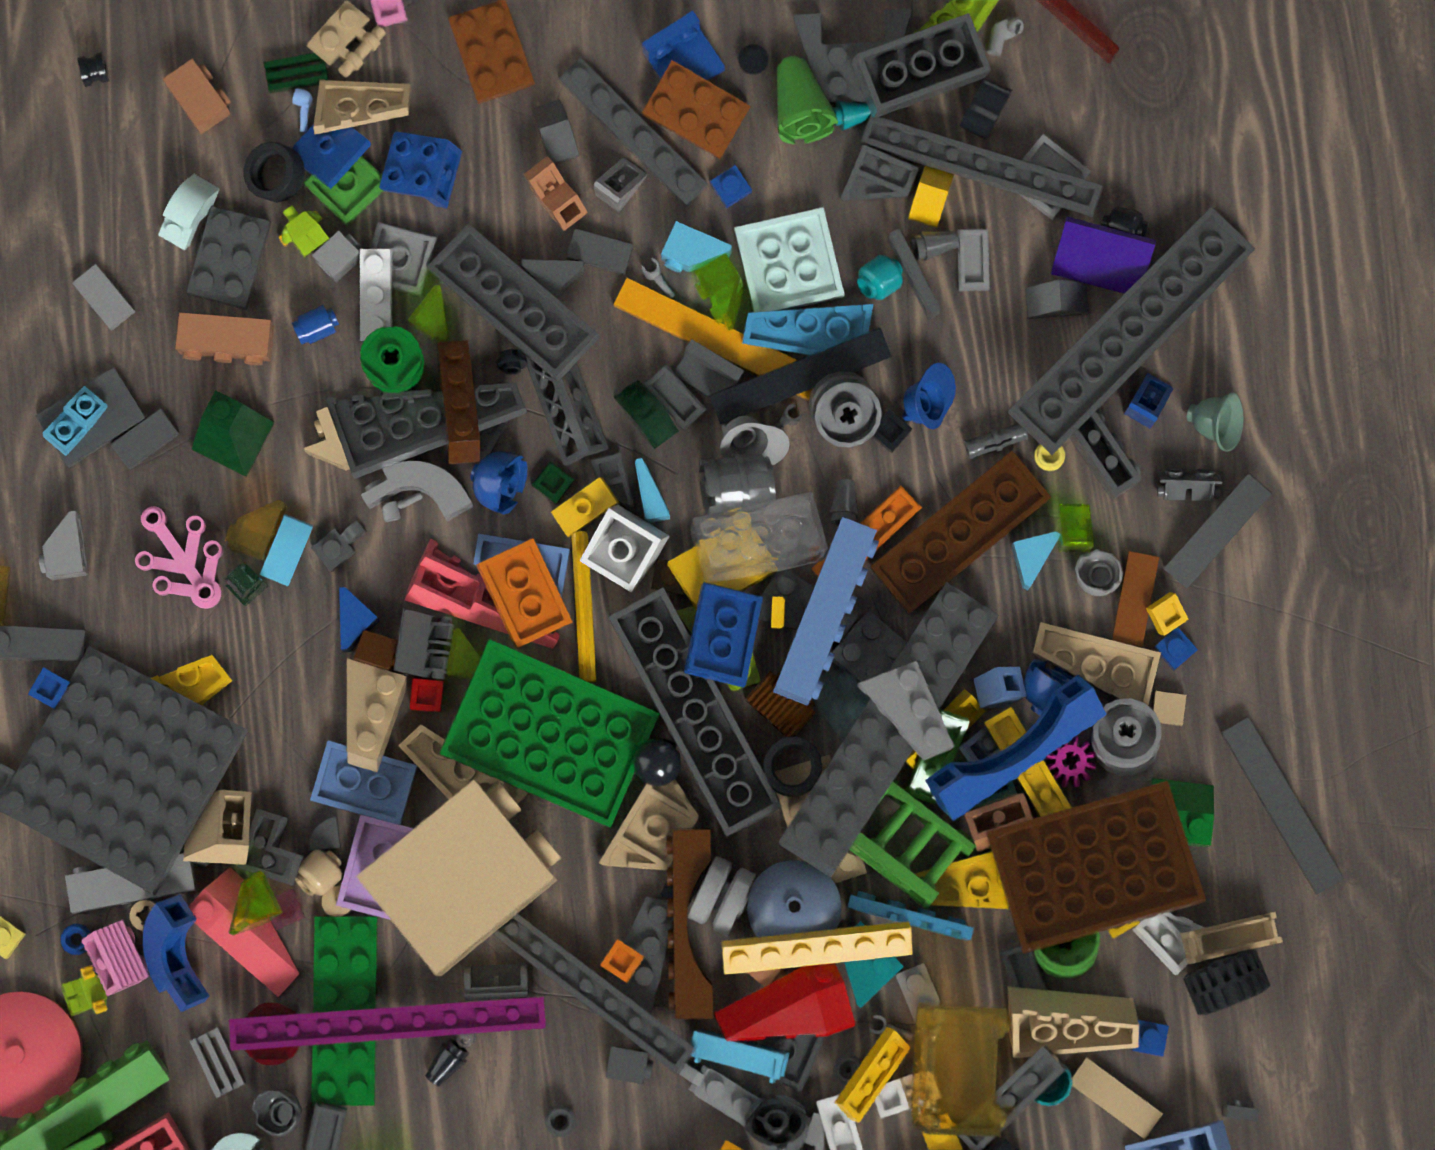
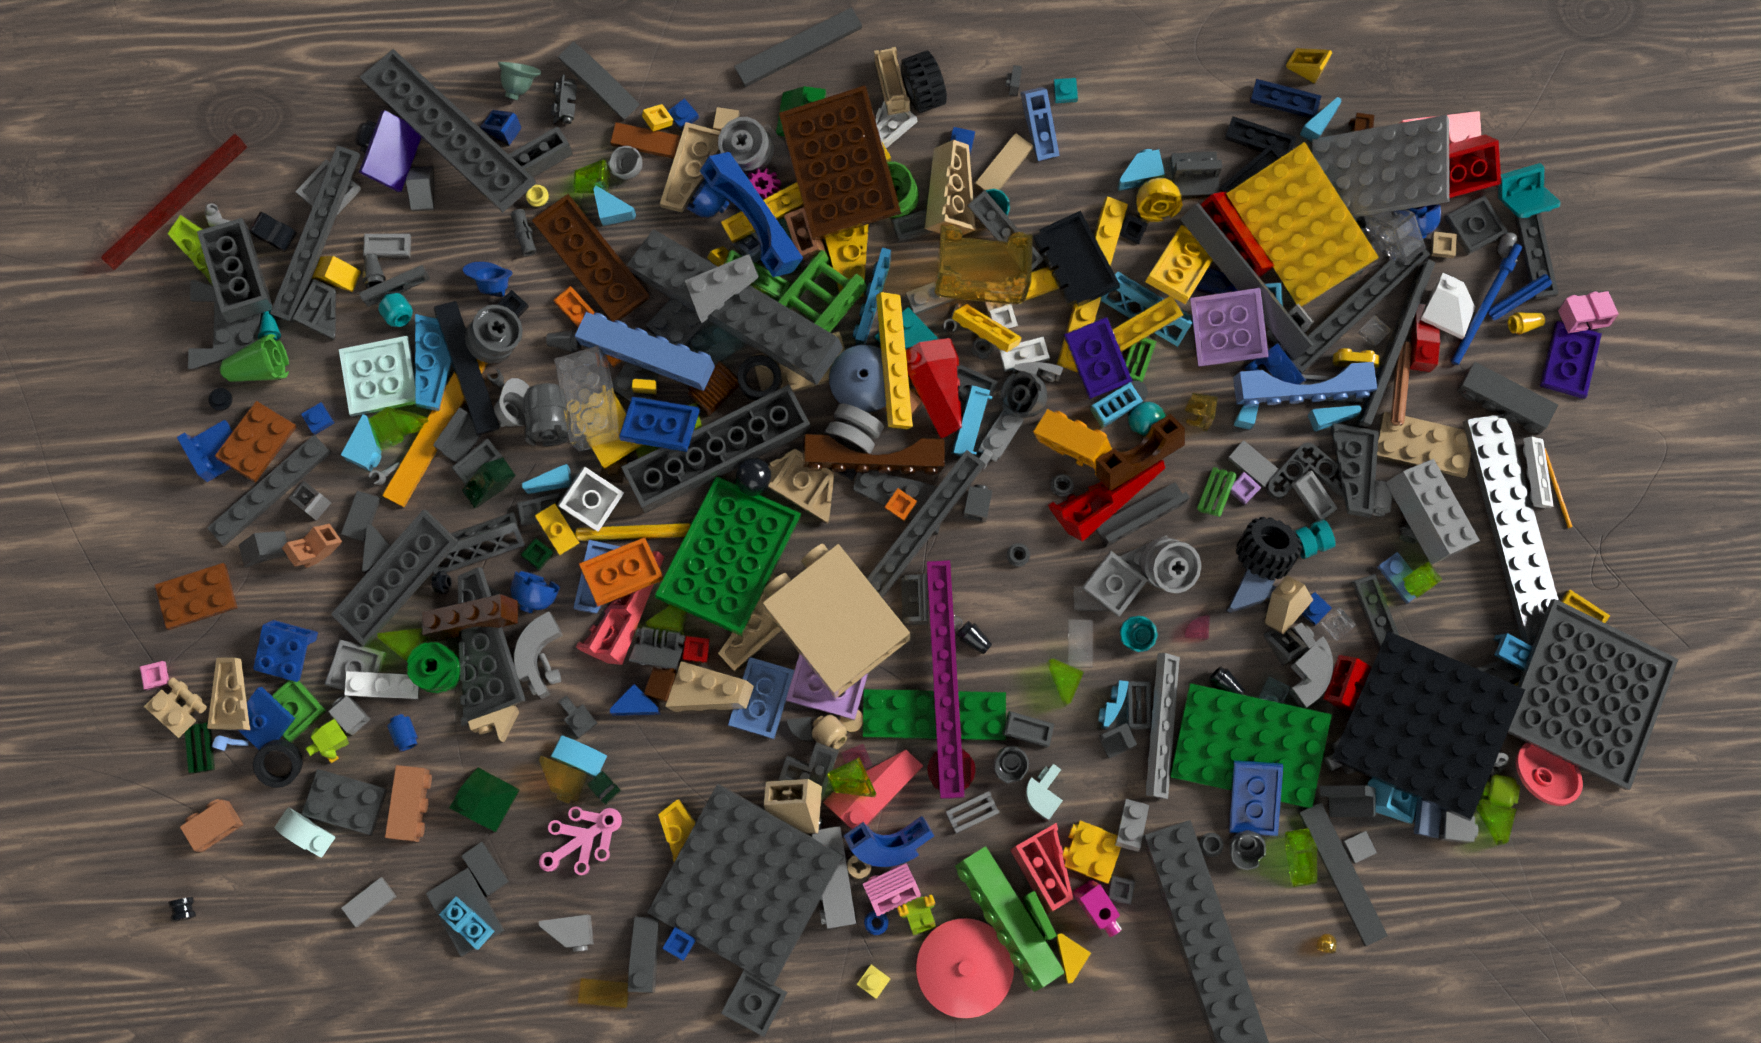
camera: 90 degrees left, 5 degrees down
(999, 687) = (706, 232): medium blue brick -> none

